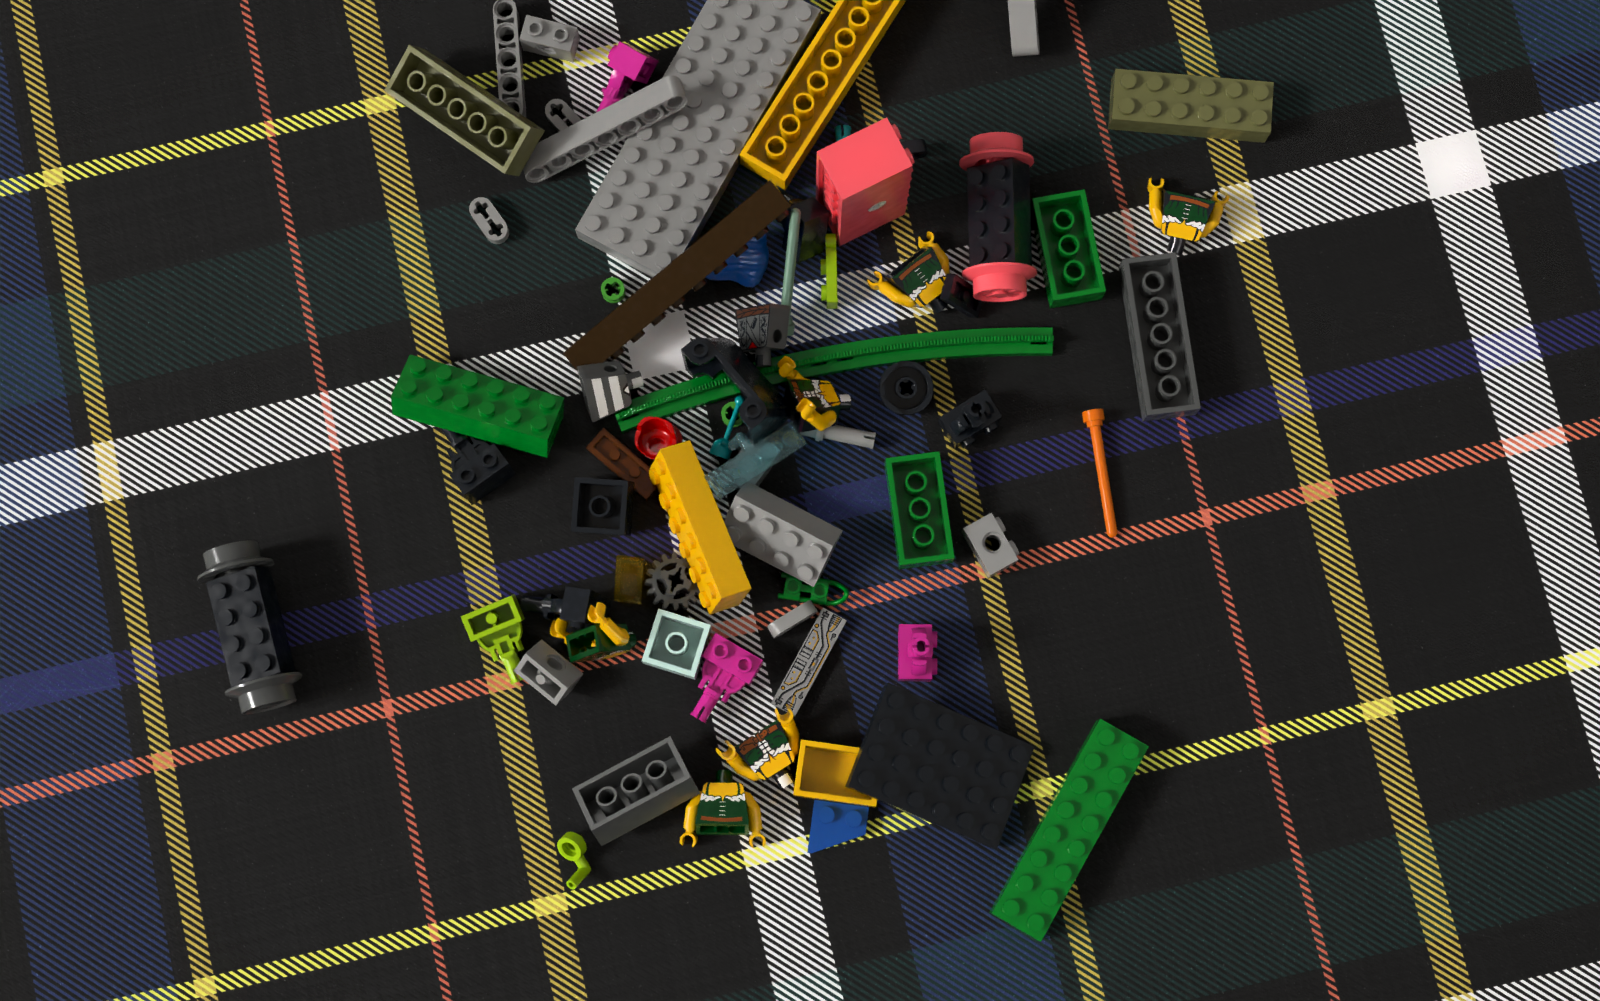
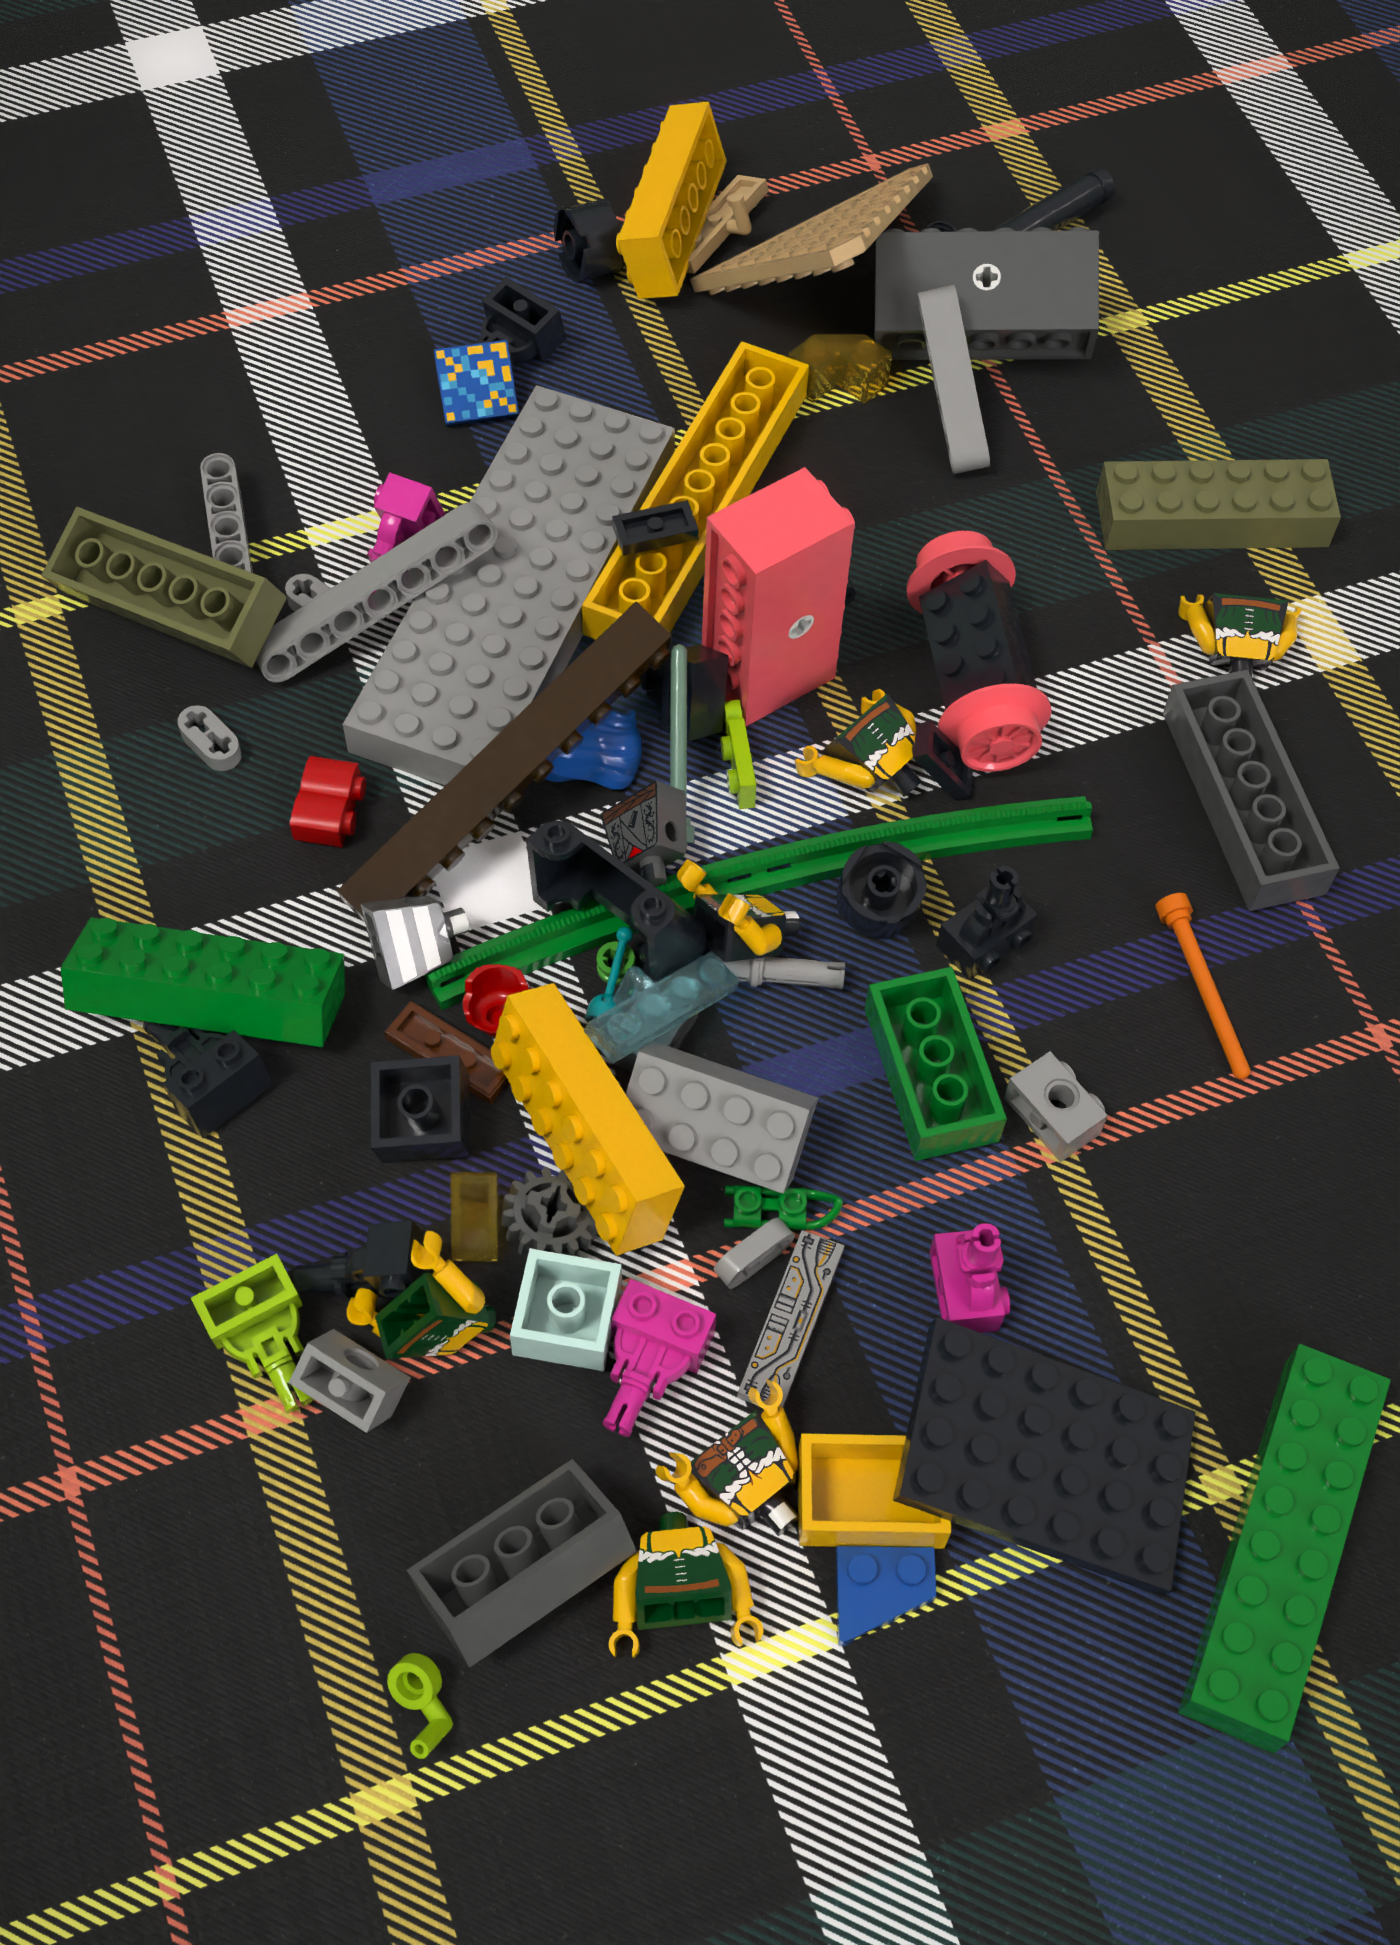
camera: 10 degrees left, 20 degrees down
(549, 38) = (286, 501): light grey brick -> none
(561, 279) = (327, 801): none -> red brick
(614, 298) = (404, 801): bright green bush -> none
(795, 101) = (655, 528): none -> black plate
(1067, 248) = (1089, 688): green brick -> none

